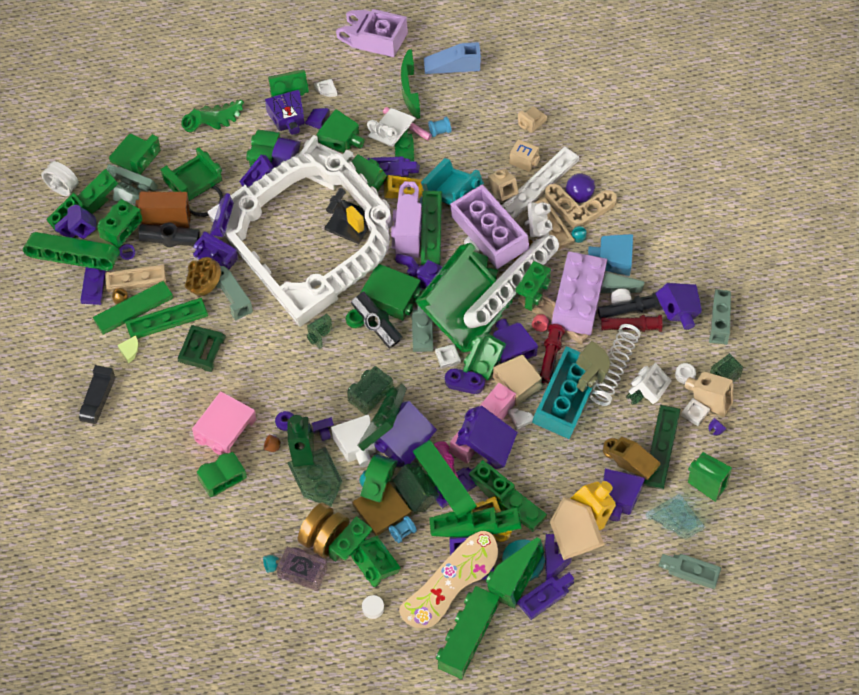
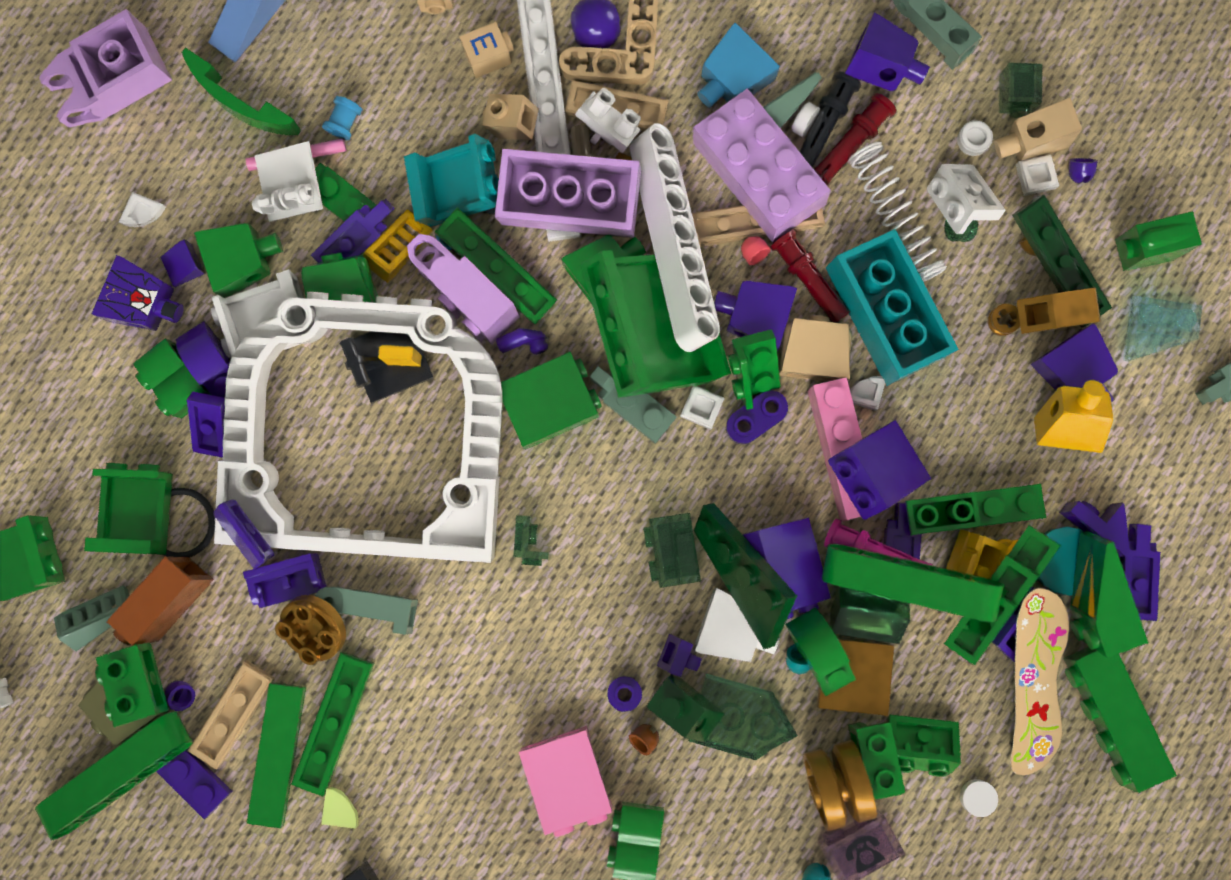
camera: 45 degrees left, 25 degrees up
(76, 222) = (77, 737): dark purple brick -> none
(90, 199) = (48, 698): green slope -> none
(117, 298) = (240, 750): pearl gold hinge -> none
(128, 177) = (60, 598): sand green hinge -> none
(176, 236) = (187, 632): black piece -> none
(195, 345) = (412, 723): dark green plate -> none
(212, 116) = (52, 402): green plant -> none
(288, 82) = (93, 260): green bracket -> none
(354, 319) = (547, 478): green plate -> none
(384, 328) = (580, 457): black piece -> none
(402, 529) = (907, 675): dark azure bush -> none
(427, 273) = (570, 330): dark purple brick -> none
(534, 284) = (703, 210): green bracket -> none
(575, 528) = (1101, 471): tan tile -> none
(579, 234) = (669, 88): teal hinge -> none
(595, 363) = (903, 243): olive brick -> none

